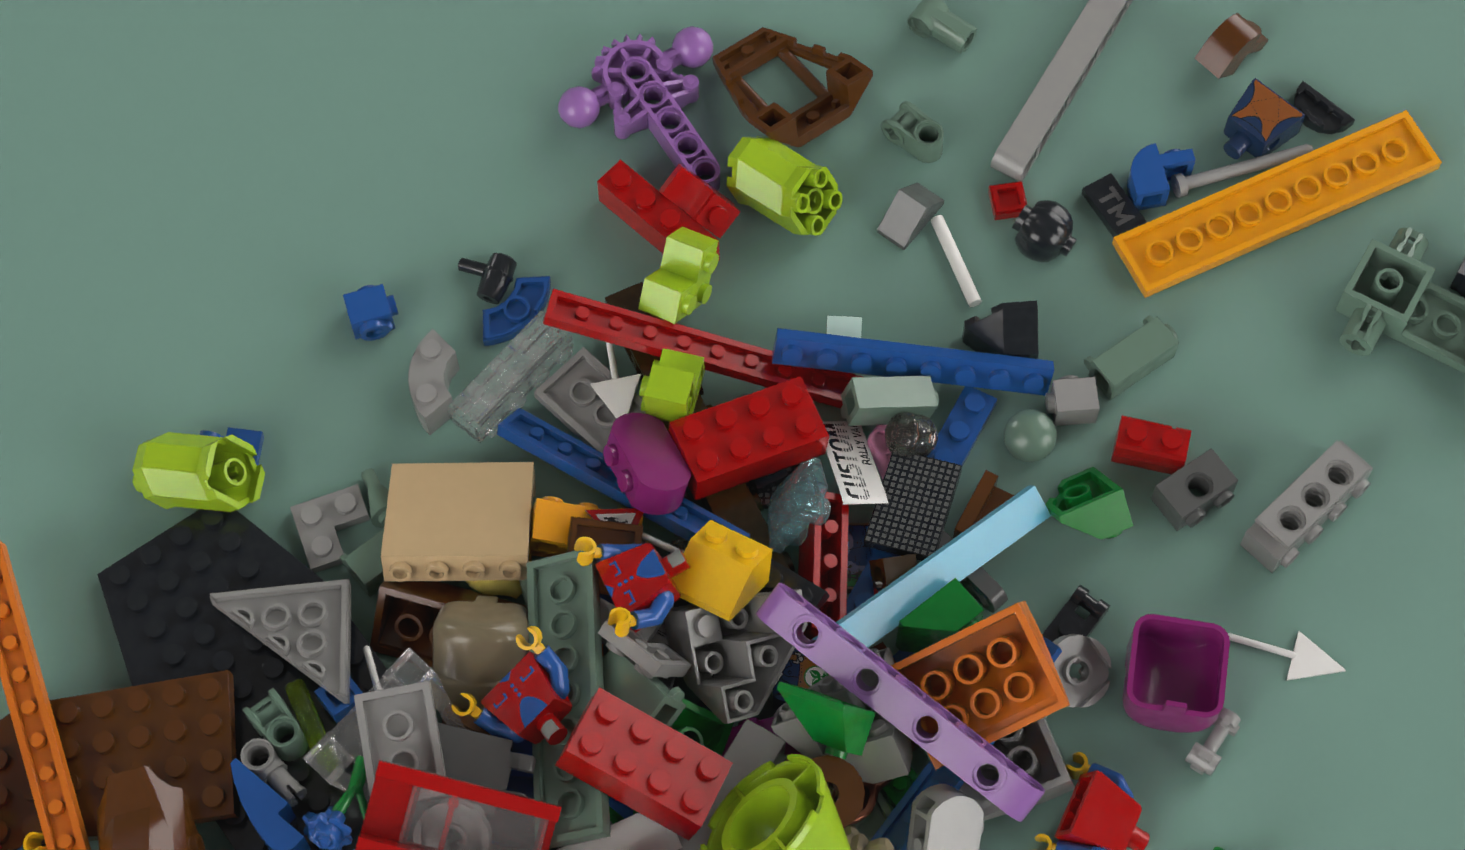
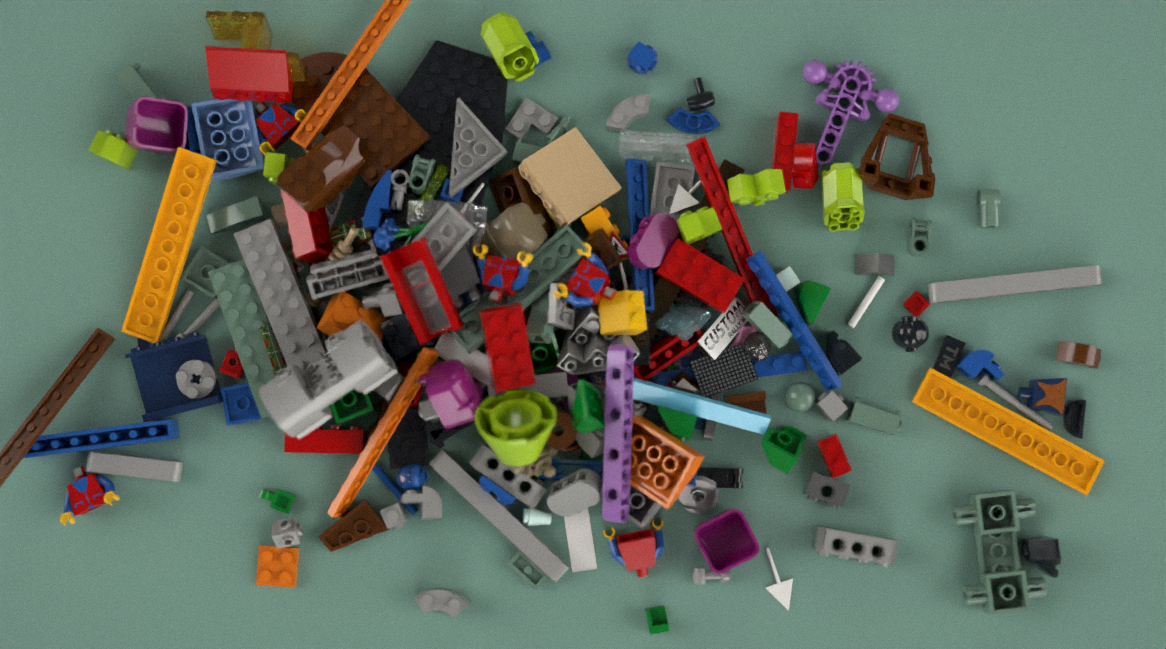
camera: 60 degrees right, 20 degrees up
(898, 316) = (811, 299): none -> green slope

